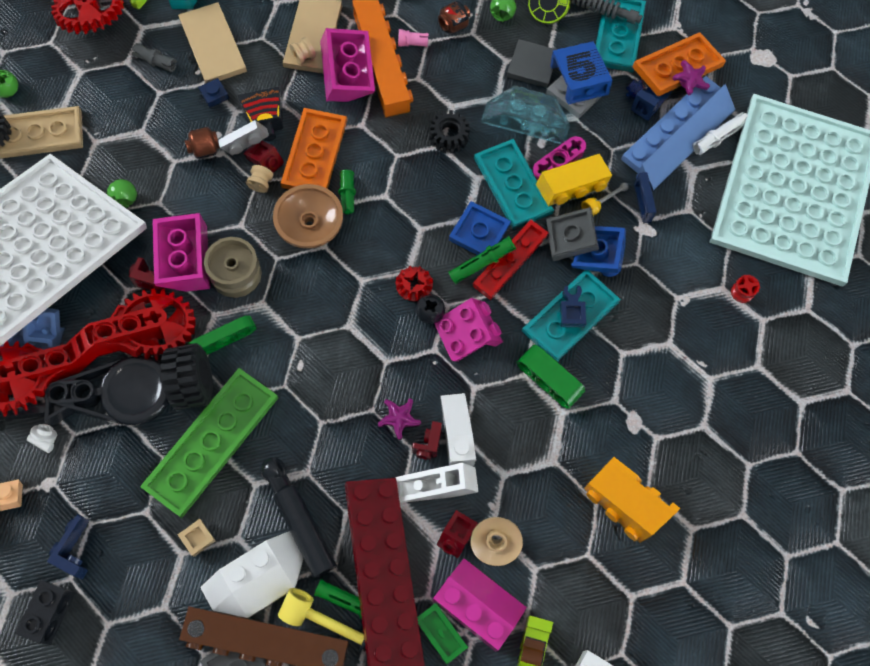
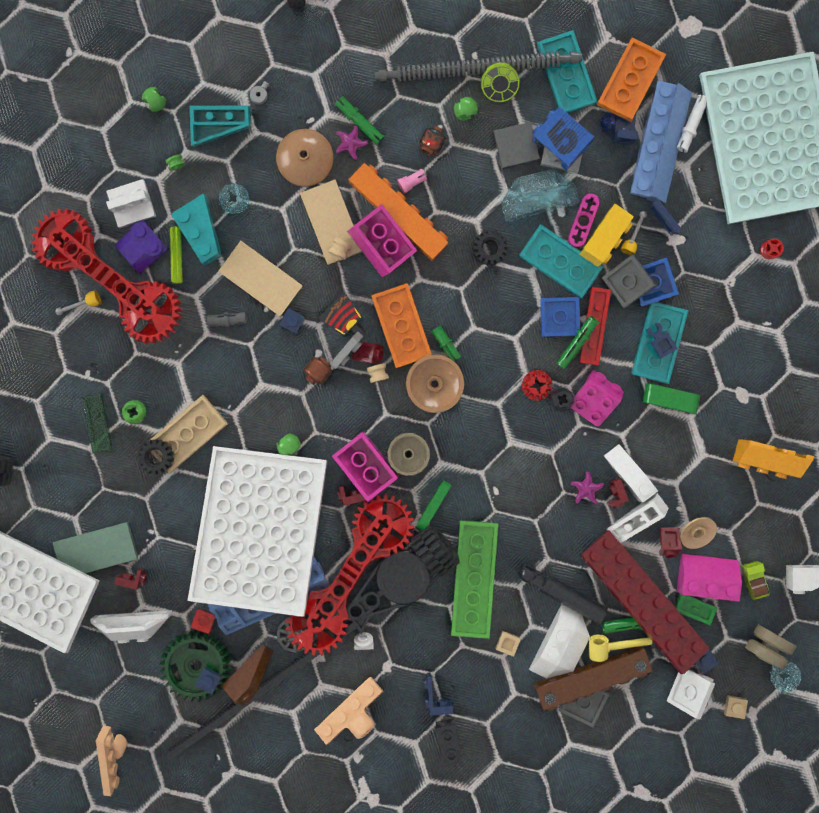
camera: 25 degrees left, 20 degrees up
(691, 77) = (650, 93): magenta animal -> none

